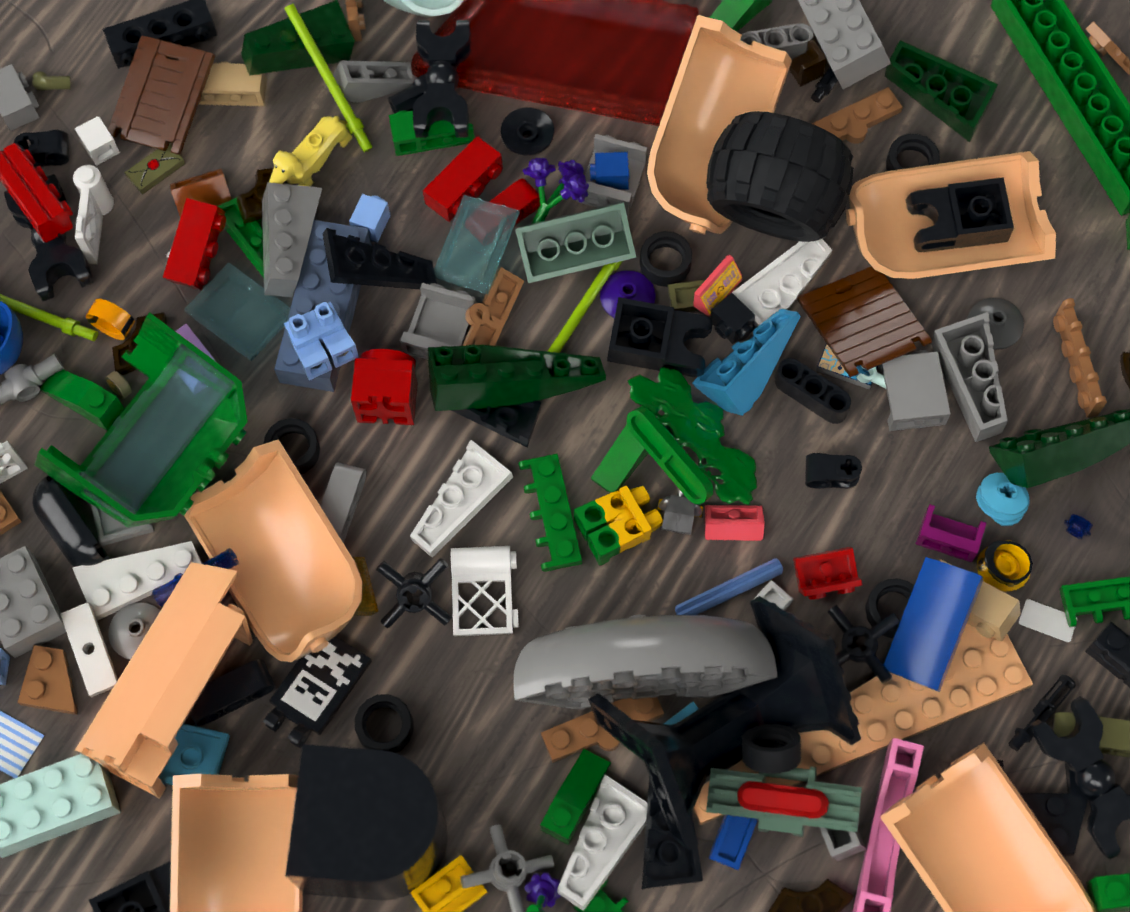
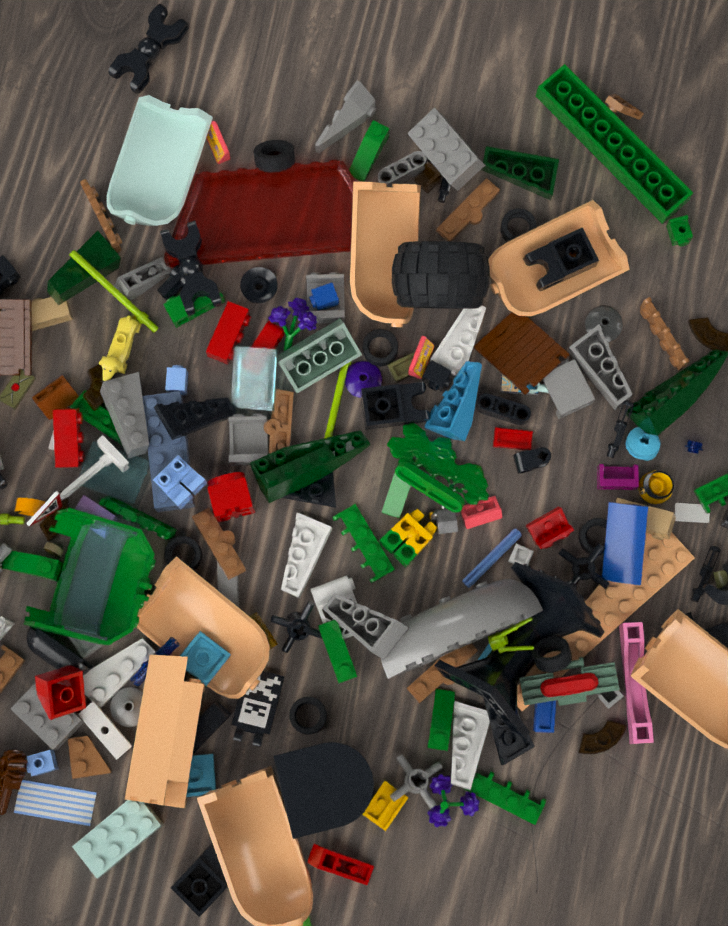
camera: 20 degrees left, 10 degrees up
(47, 570) = (61, 691): none -> red slope
(131, 319) = (54, 502): none -> white piece
(257, 386) = (134, 515): none -> green hinge
(265, 595) = (204, 658): none -> medium azure tile
(347, 446) = (220, 543): none -> medium nougat hinge
(458, 646) = (337, 651): none -> green slope
(514, 617) = (369, 627): none -> light grey wedge
(698, 704) = (499, 639): none -> lime plant
(812, 435) = (512, 439): none -> red tile
(975, 466) = (620, 429): none -> black piece

